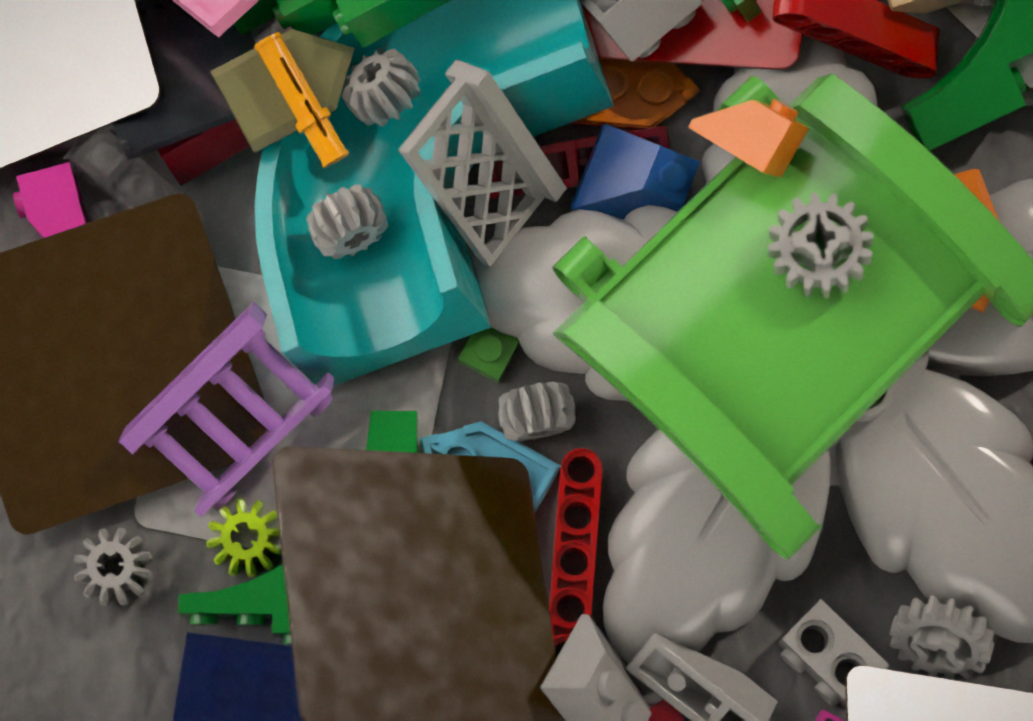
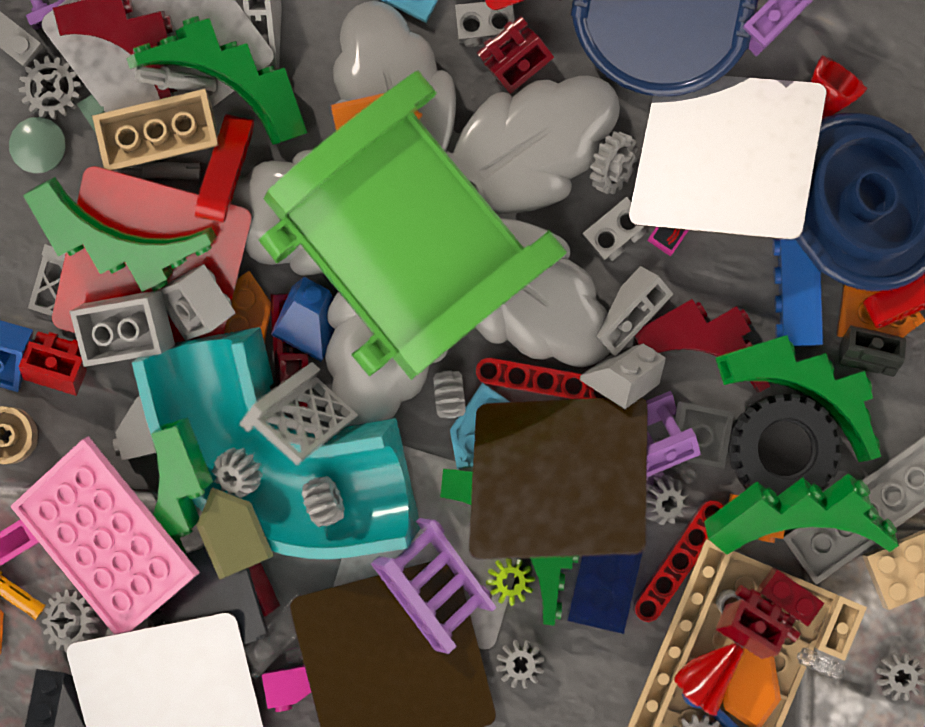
camera: 80 degrees left, 10 degrees up
(311, 117) = (257, 518): light orange pin -> none
(489, 353) = (407, 420): bright green plate -> none
(755, 133) = (303, 242): orange slope -> none
(802, 250) = (379, 196): light grey gear -> none

